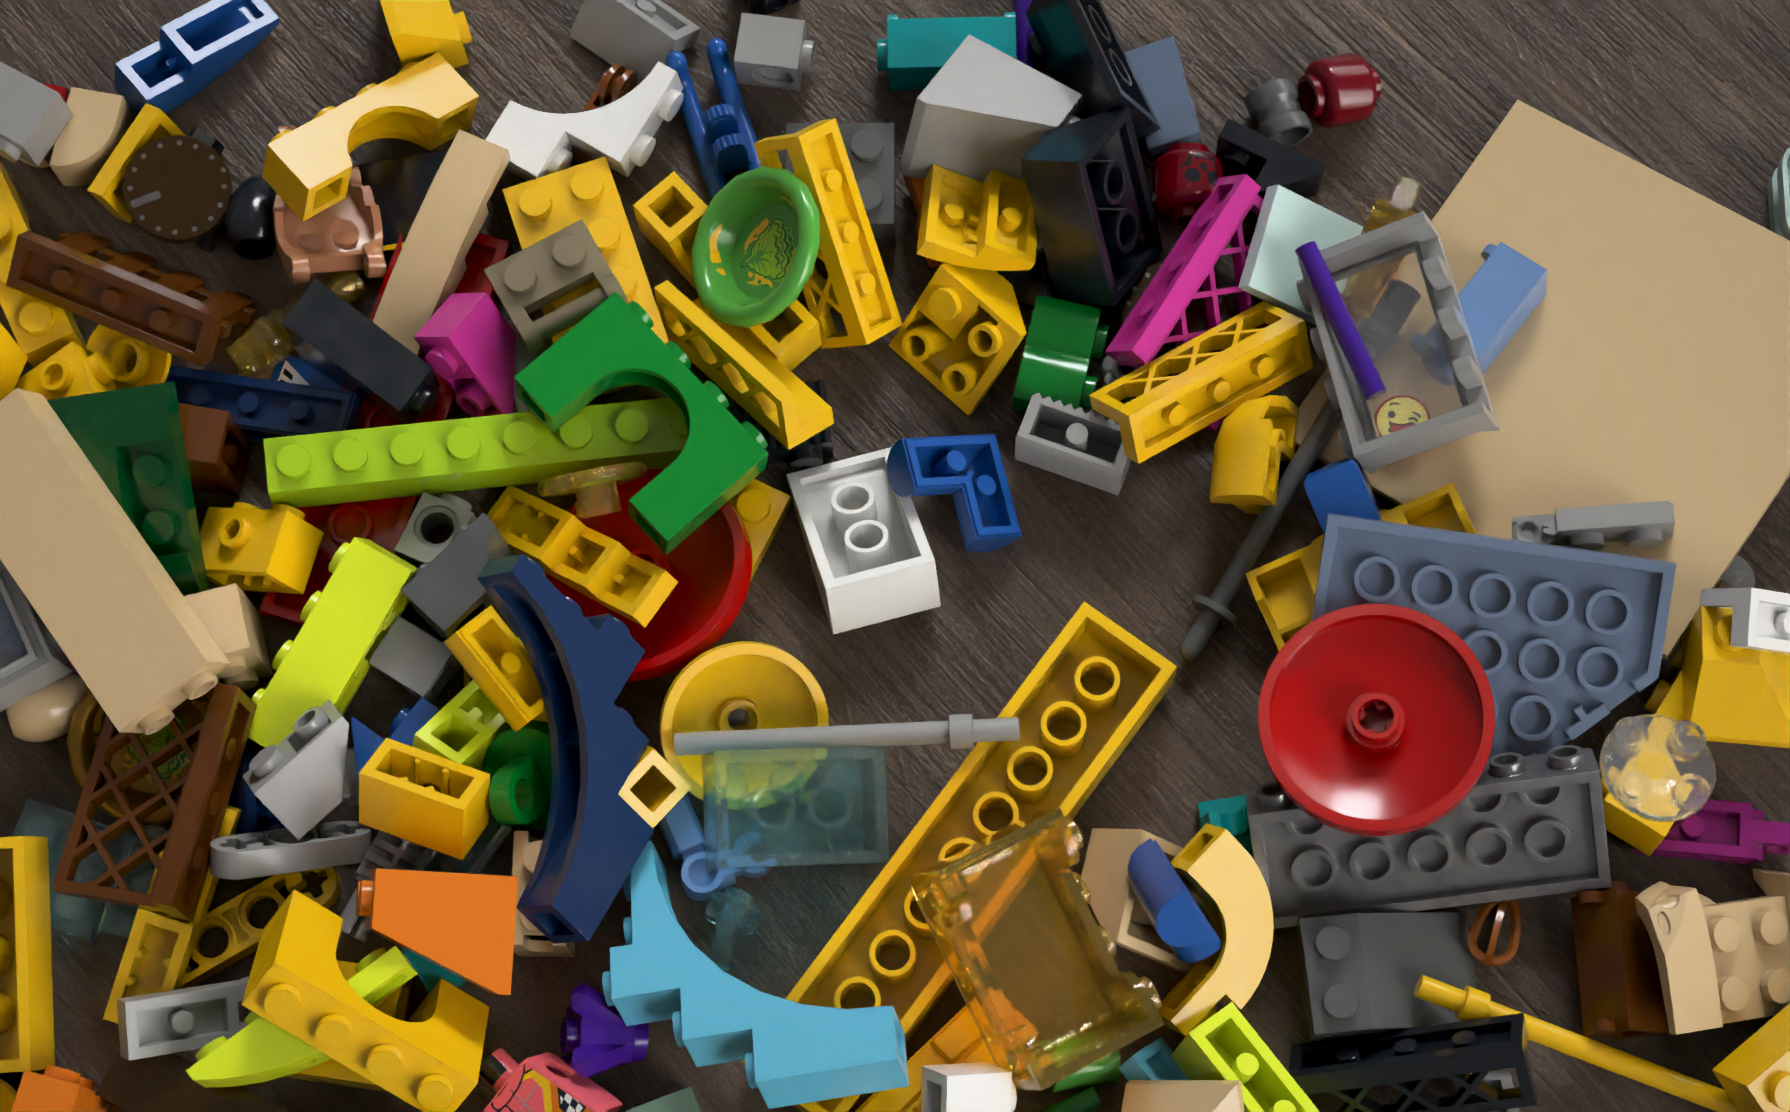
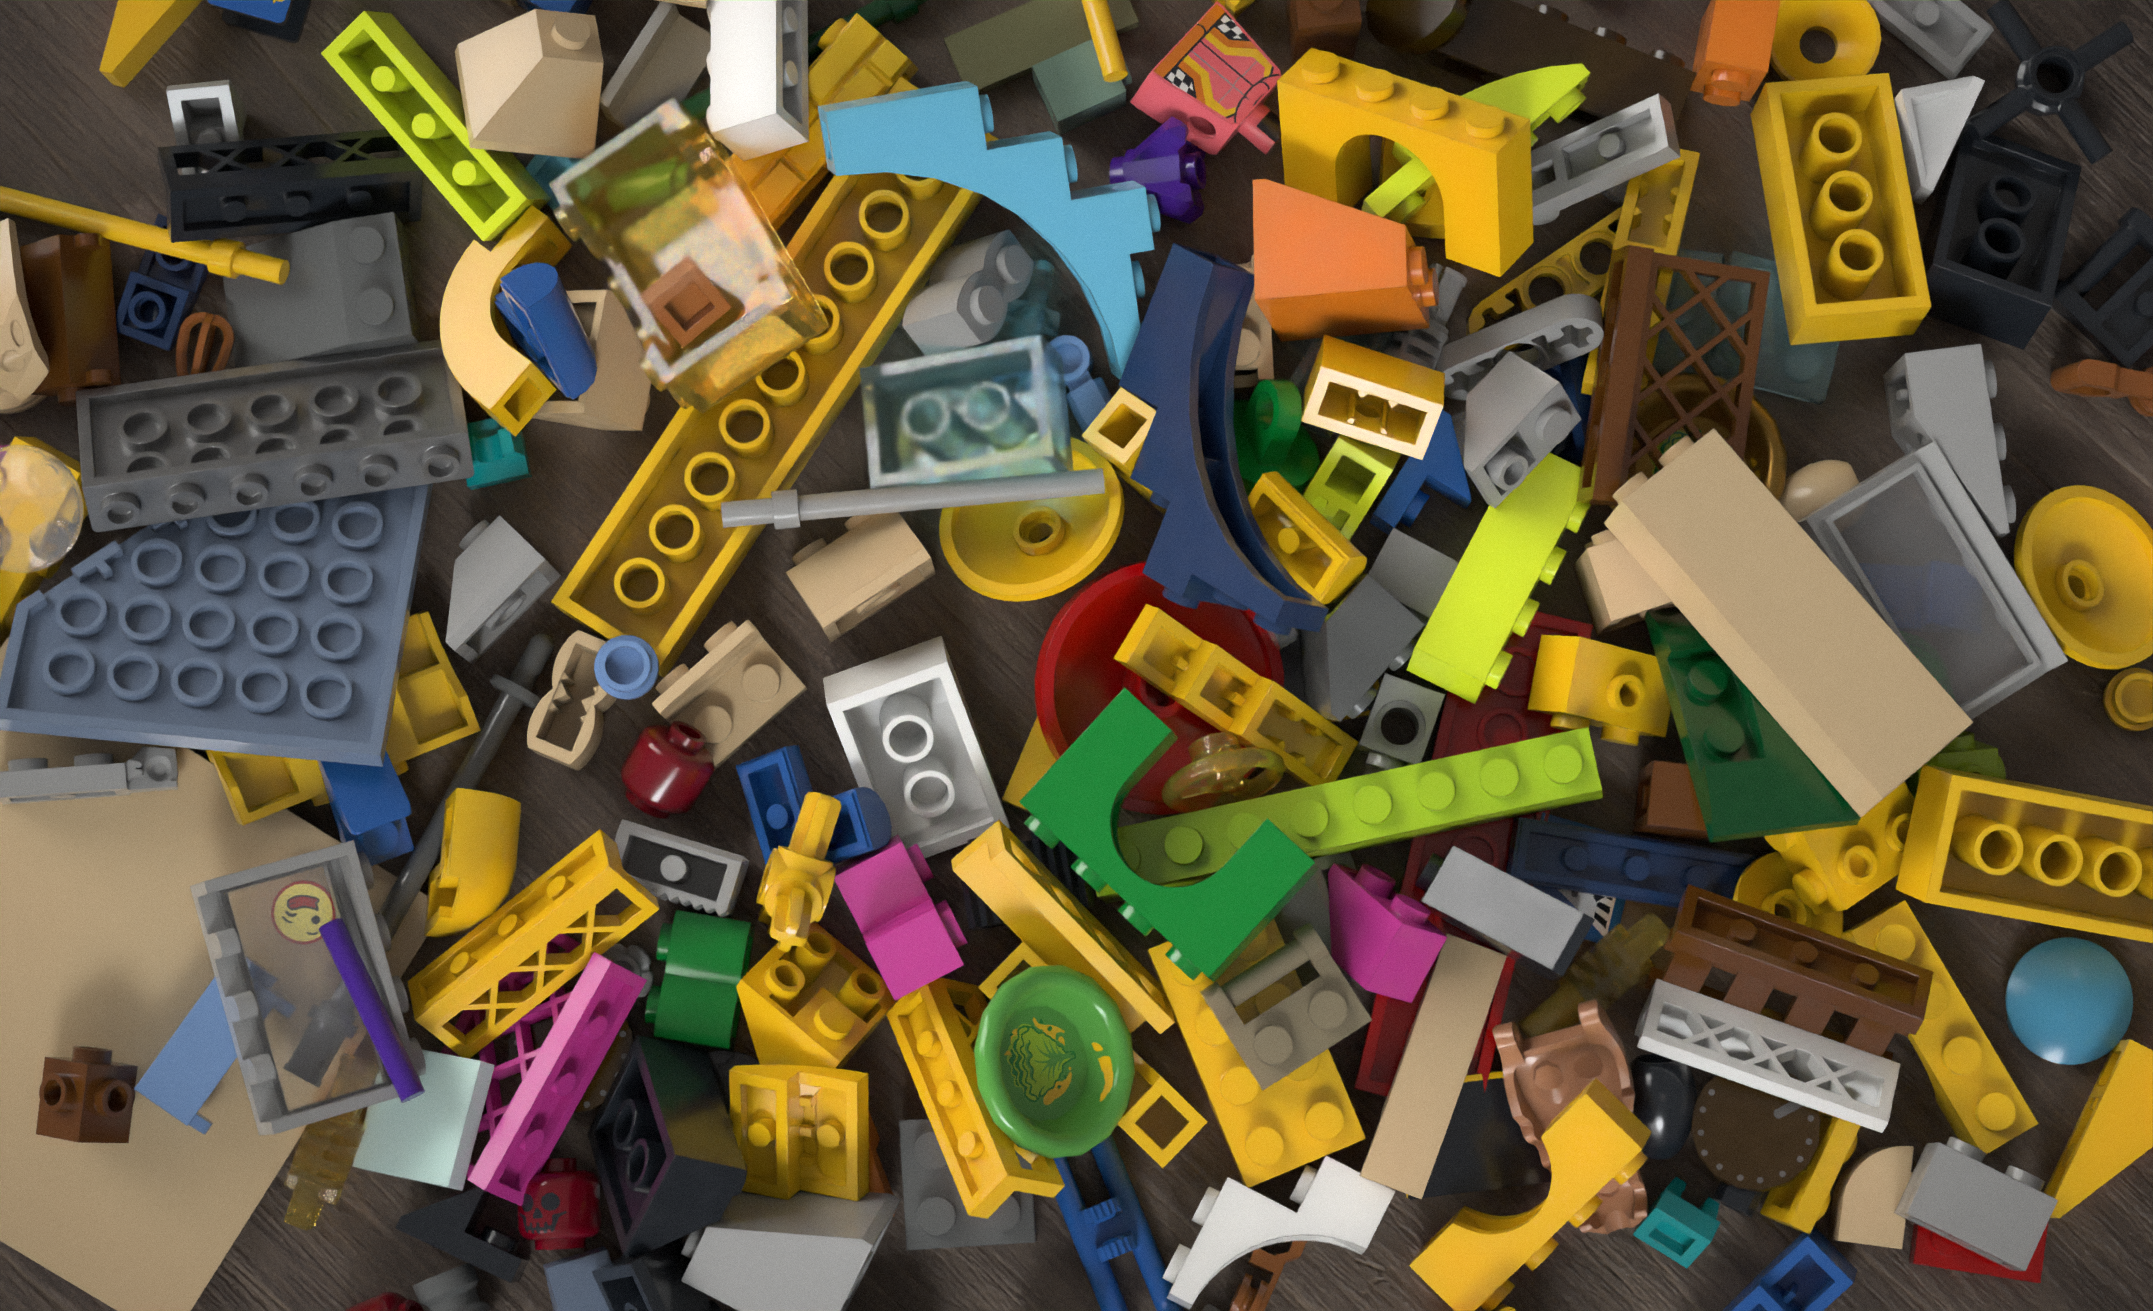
camera: 175 degrees right, 10 degrees up
(177, 263) = (1760, 1052): none -> white fence
(254, 121) = (1678, 1226): none -> teal tile
(784, 925) = (968, 293): none -> light grey brick
(879, 382) = (898, 920): none -> dark pink brick
(902, 681) = (859, 571): none -> tan slope
(966, 414) = (799, 876): none -> yellow bush
(1025, 595) = (729, 690): none -> tan bracket
(1043, 917) = (685, 301): none -> nougat tile
(1081, 530) = (667, 769): none -> dark red head
(1110, 599) = (626, 667): none -> medium blue plate
(1163, 583) = (570, 716): none -> tan brick
(1223, 698) = (493, 586): none -> light grey slope
(1376, 719) = (325, 531): red dish -> none
(1539, 983) = (159, 296): none -> dark blue slope
(1588, 267) = (86, 1097): none -> reddish brown brick

